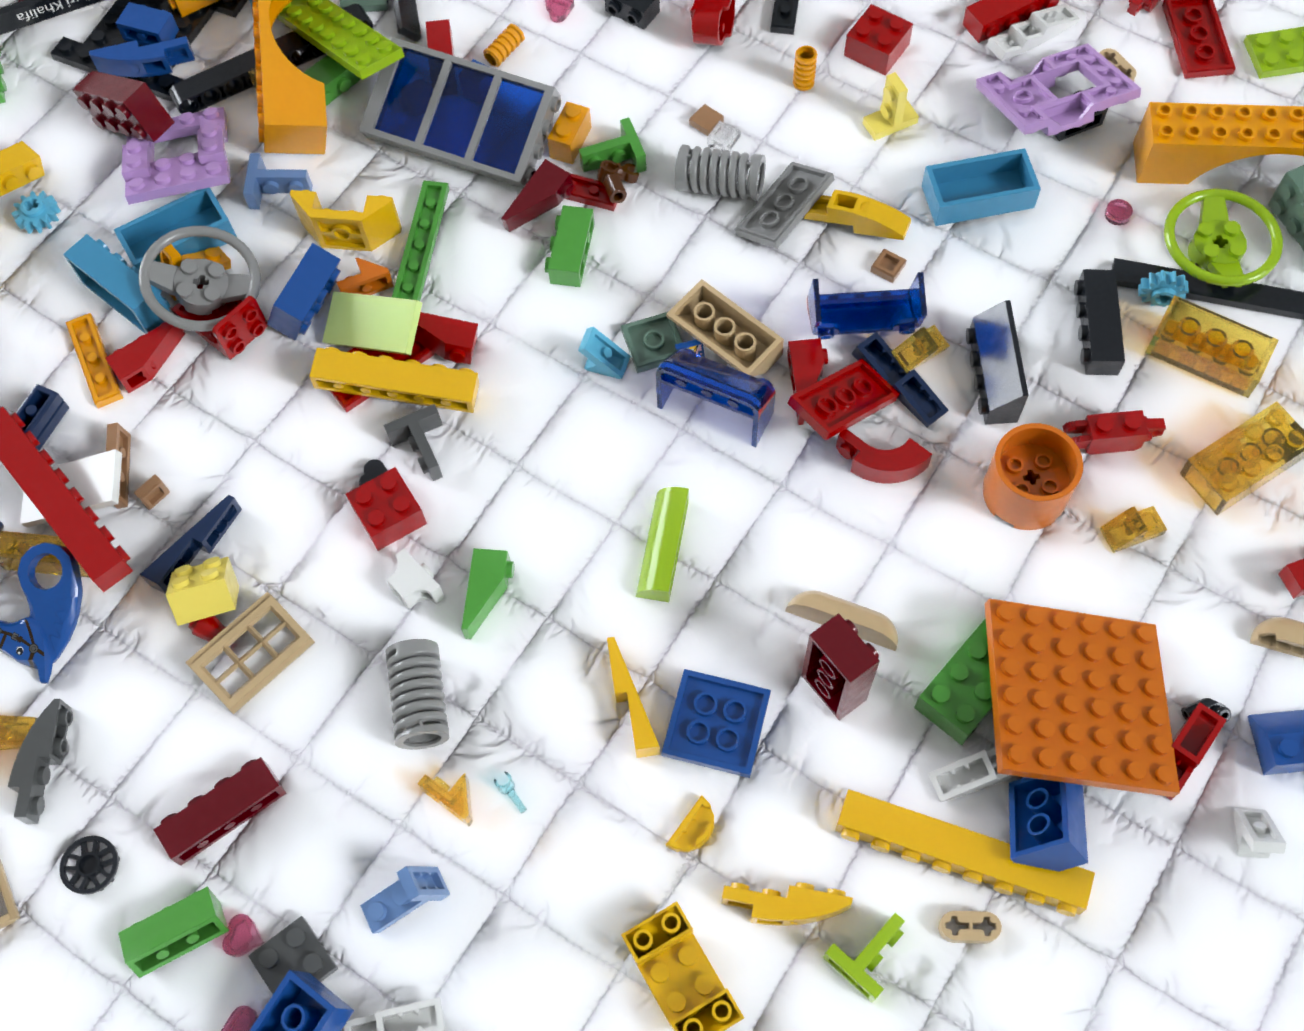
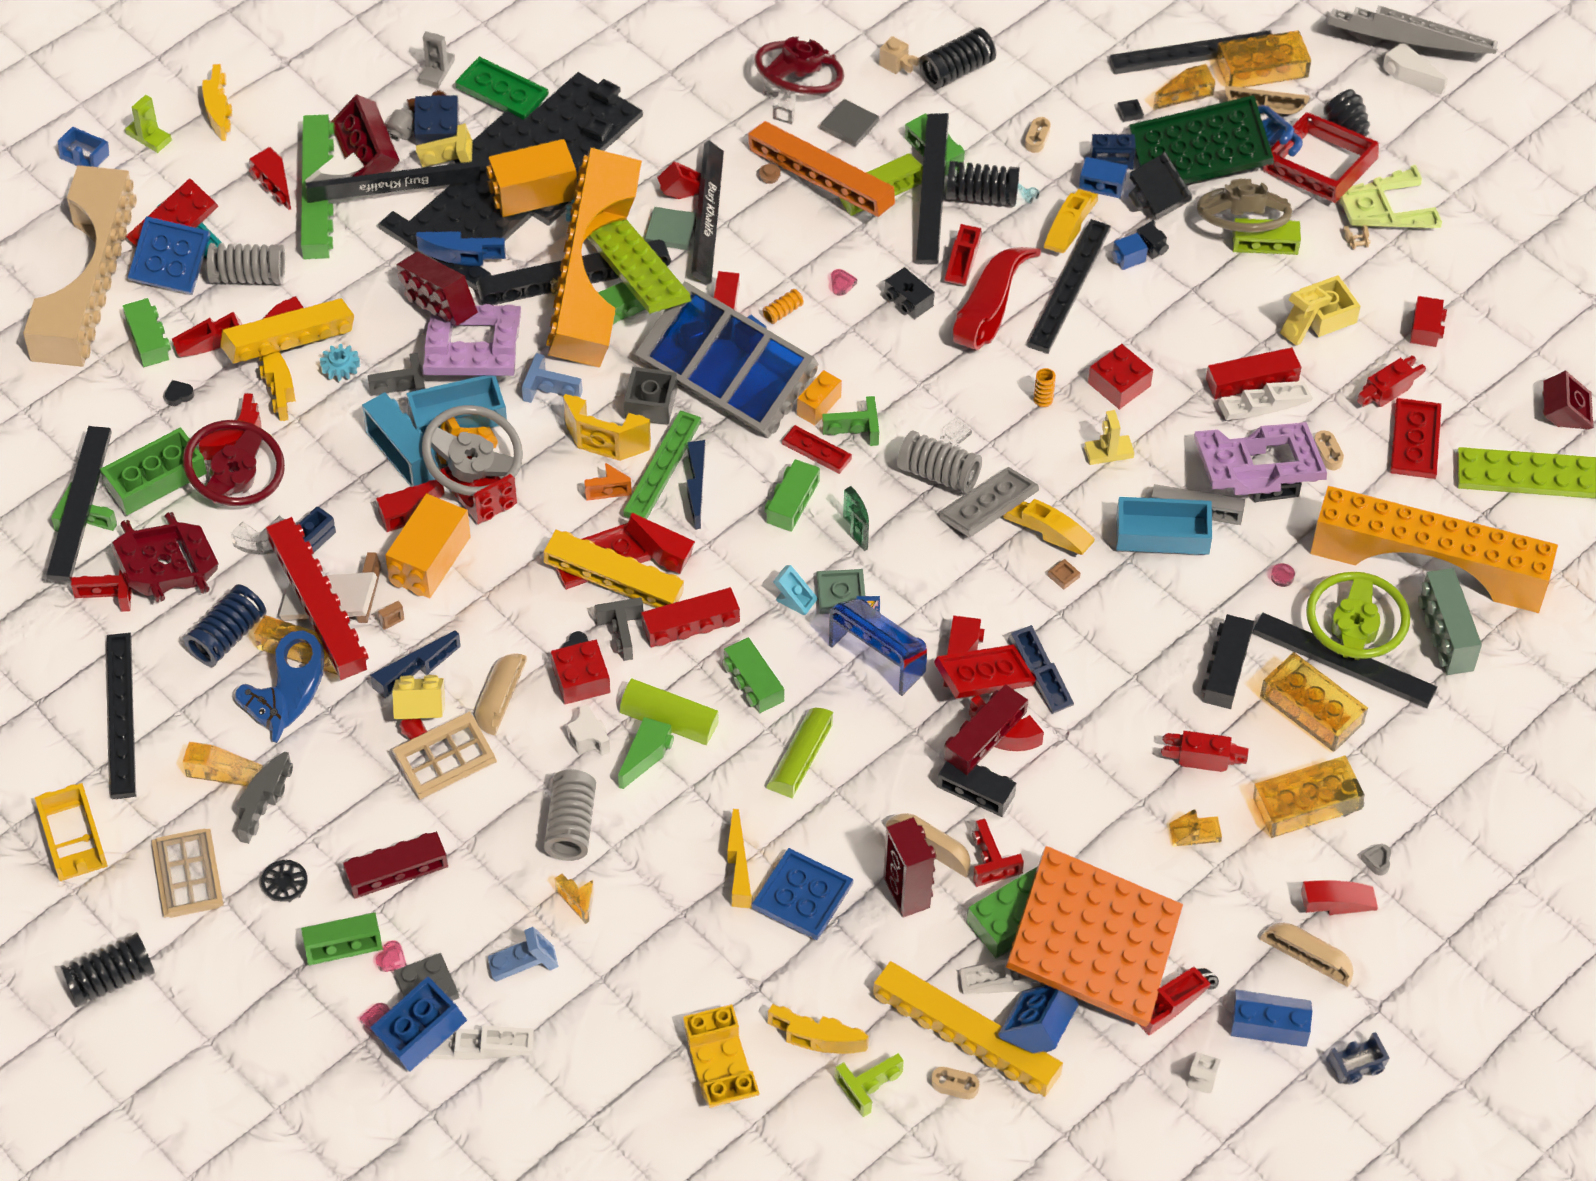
camera: 10 degrees right, 10 degrees down
(92, 359) = (363, 498): light orange tile -> none
(105, 216) = (398, 379): none -> dark grey bracket
(146, 24) = (470, 219): blue brick -> none
(175, 400) = (428, 546): none -> light orange brick
(298, 555) = (499, 691): none -> tan brick
(305, 292) = (555, 482): blue piece -> none
(372, 322) = (606, 519): yellowish green tile -> none
(387, 169) = (651, 394): none -> dark grey brick
(461, 261) = (695, 486): none -> dark blue slope
(495, 412) = (690, 617): none -> red brick
(500, 530) = (684, 715): none -> lime brick
(511, 793) = (624, 904): clear light blue hand -> none
(541, 193) = (778, 445): dark red slope -> none
(584, 464) = (753, 675): none -> bright green brick
(611, 175) = (844, 443): reddish brown bar -> none
(649, 253) = (857, 516): none -> clear green slope
(694, 829) = (761, 966): yellow tile -> none
(705, 119) = (944, 412): medium nougat tile -> none
(727, 330) = (904, 594): tan slope -> none
(867, 311) = (1024, 605): clear blue windscreen -> none
(870, 468) = (985, 729): none -> dark red brick
(875, 534) = (978, 787): none -> black brick
(920, 348) = (1066, 647): clear yellow slope -> none
(920, 620) = (994, 866): none -> red bracket
(997, 365) = (1124, 675): slope -> none
(1032, 476) = (1119, 766): orange brick -> none
(1041, 153) = (1224, 508): none -> light grey brick
(1162, 287) = (1290, 641): medium azure gear -> none

